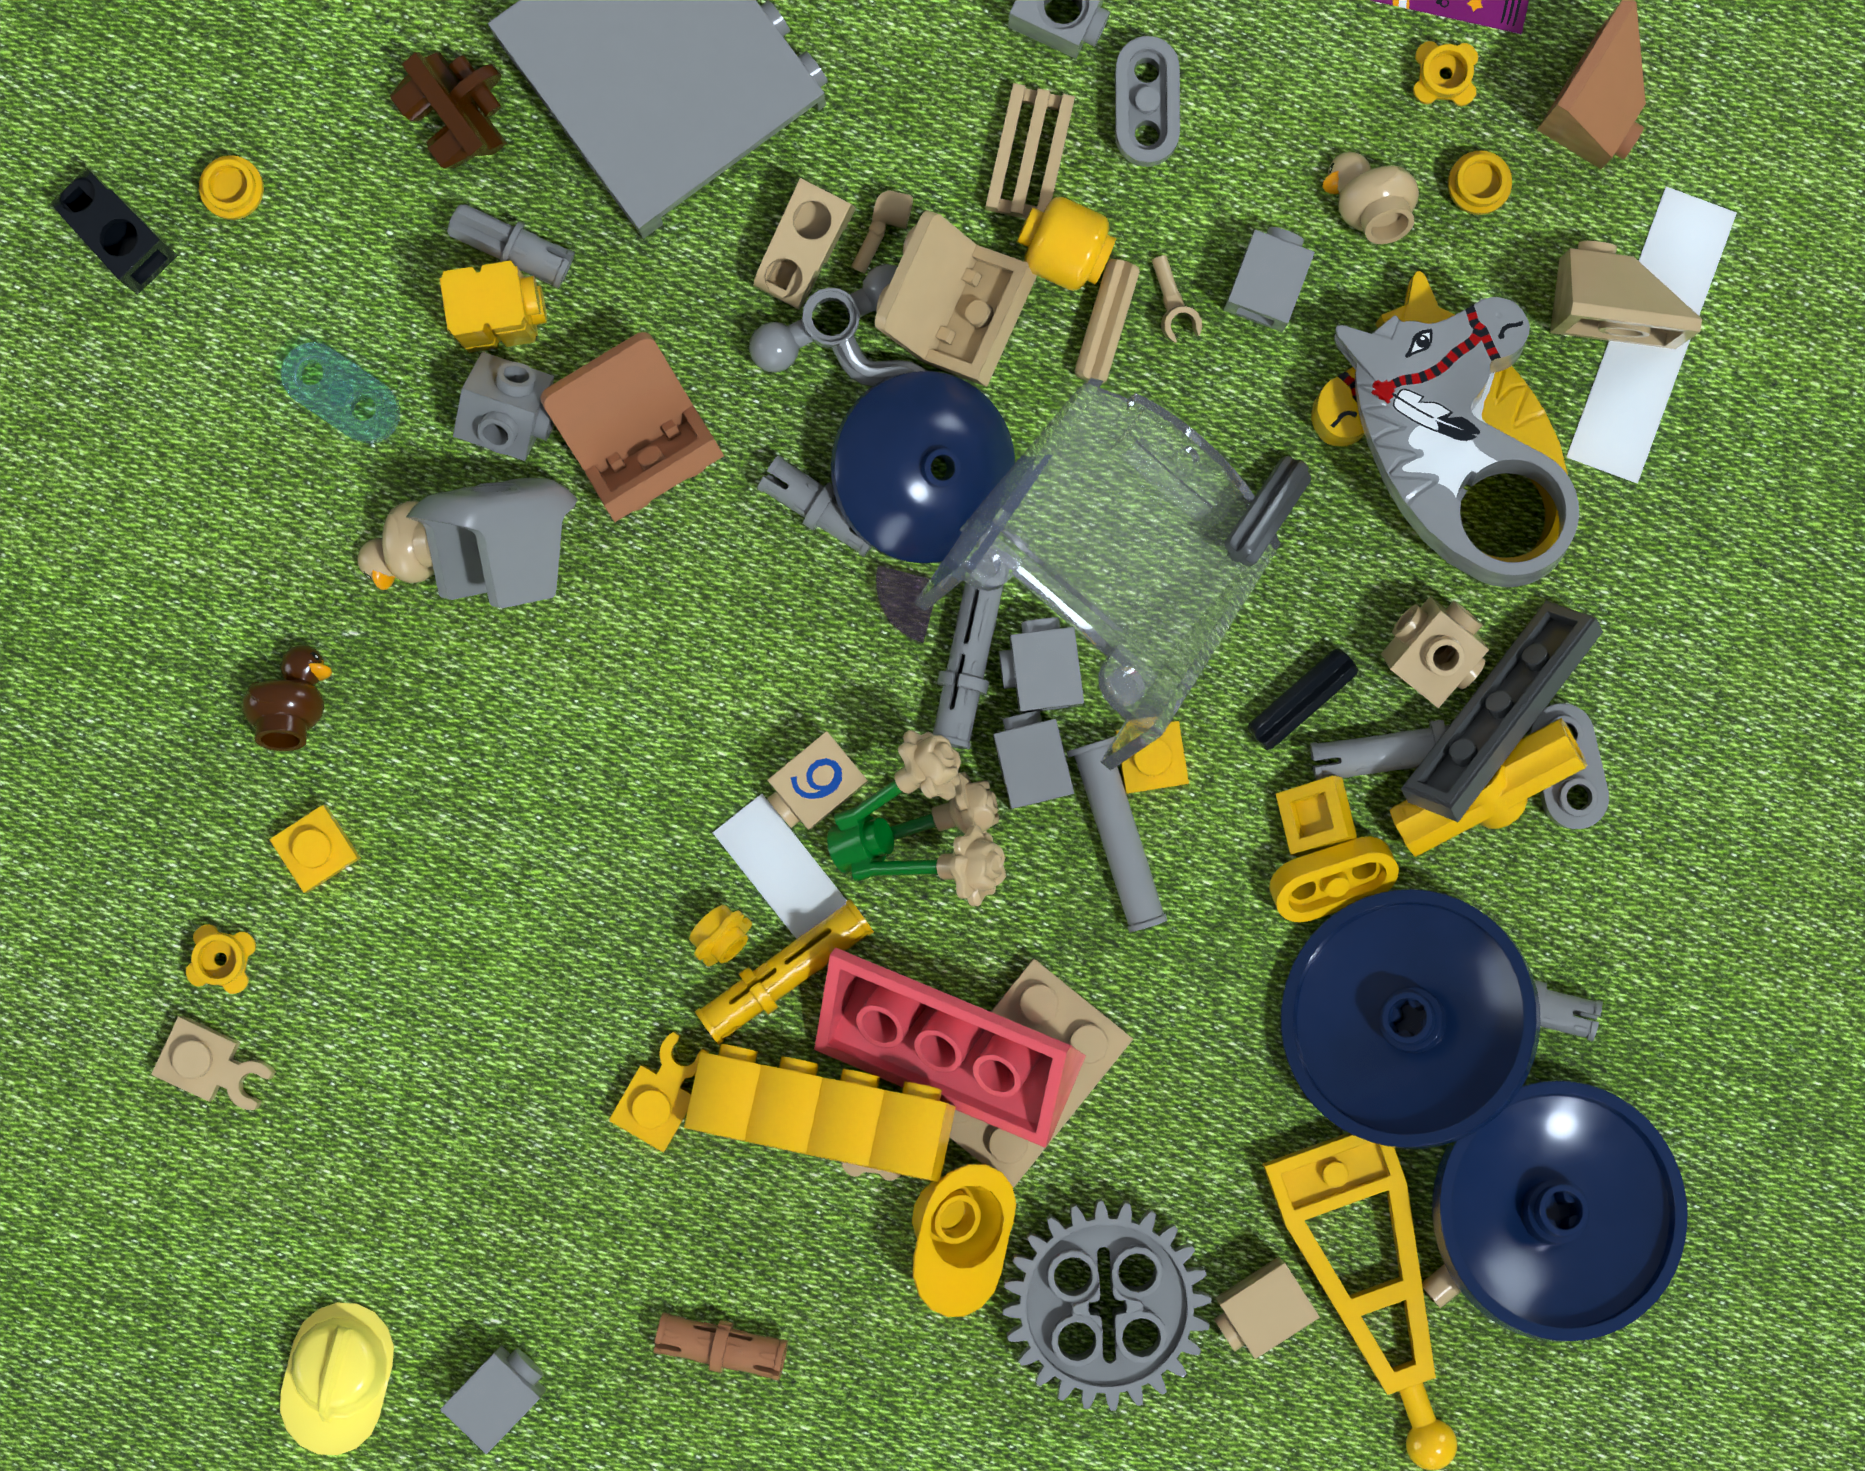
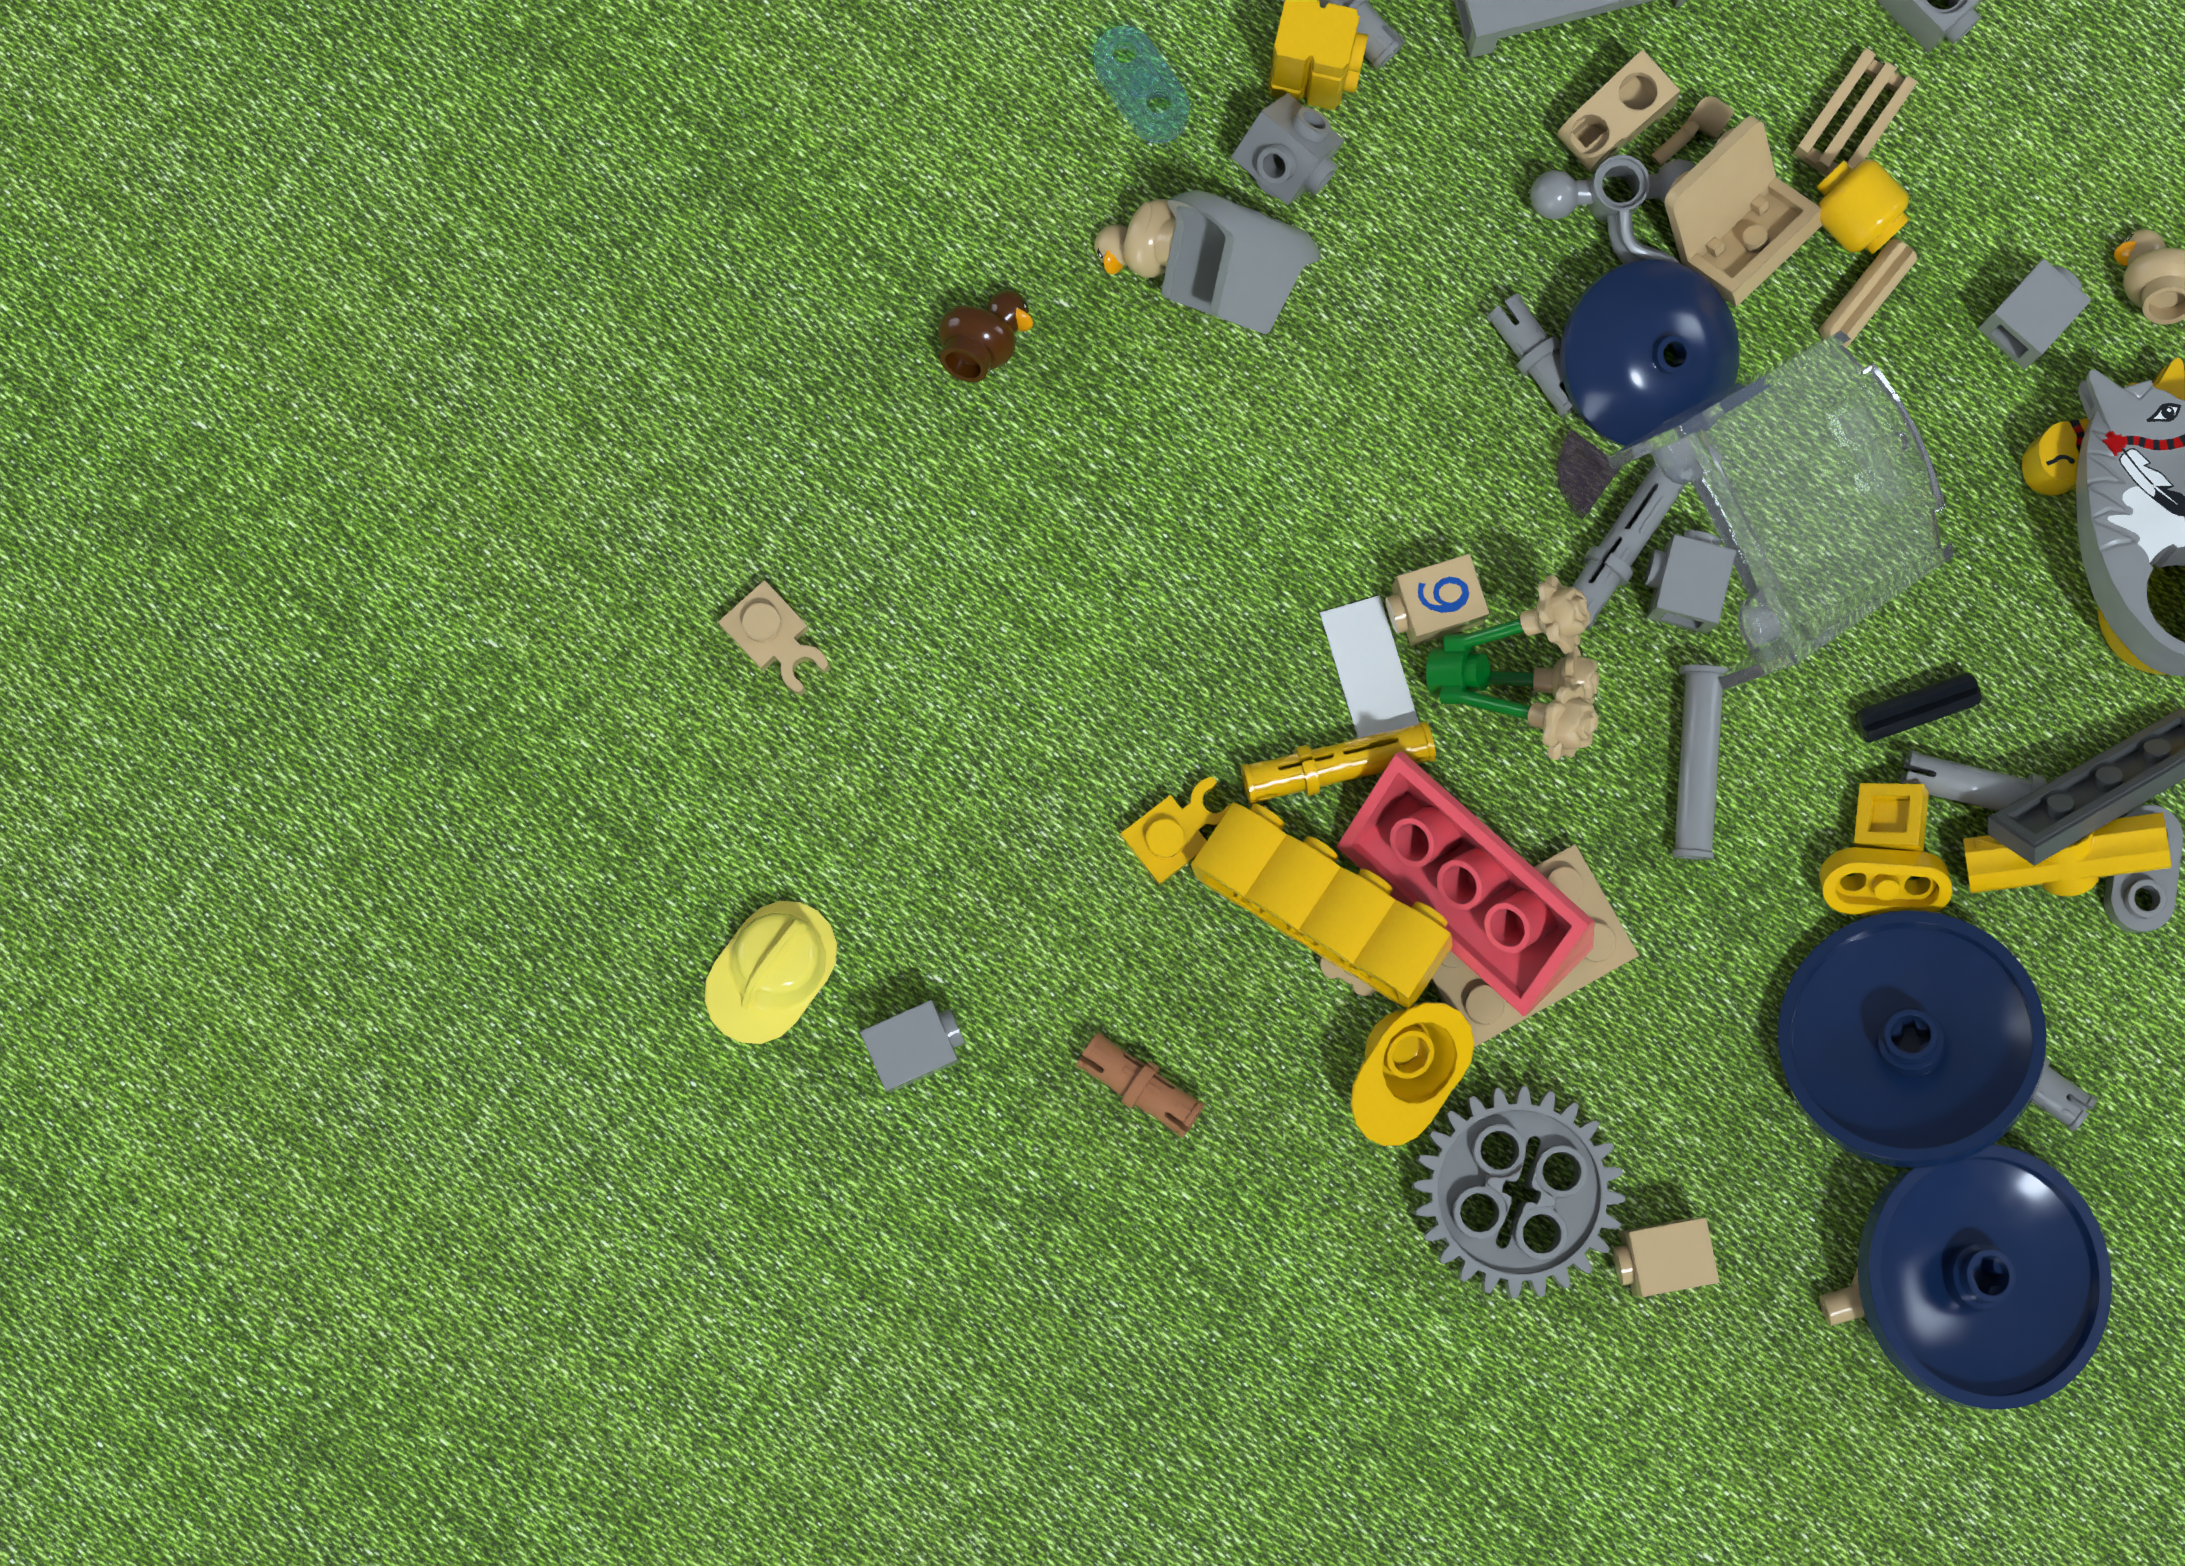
camera: 25 degrees right, 5 degrees down
(203, 966) = (818, 527): yellow plate -> none
(315, 848) = (950, 480): yellow plate -> none
(630, 425) = (1397, 208): nougat bracket -> none
(720, 935) = (1292, 705): yellow plate -> none
(1032, 760) = (1645, 662): light grey brick -> none
(1147, 103) = (1980, 115): light grey plate -> none
(1157, 764) = (1758, 708): yellow plate -> none
(1173, 299) = (1936, 302): tan hand -> none
(1268, 511) = (1954, 520): dark grey axle -> none
(1336, 1176) = (1787, 1161): yellow plate -> none
(1436, 649) = (2043, 703): tan brick -> none

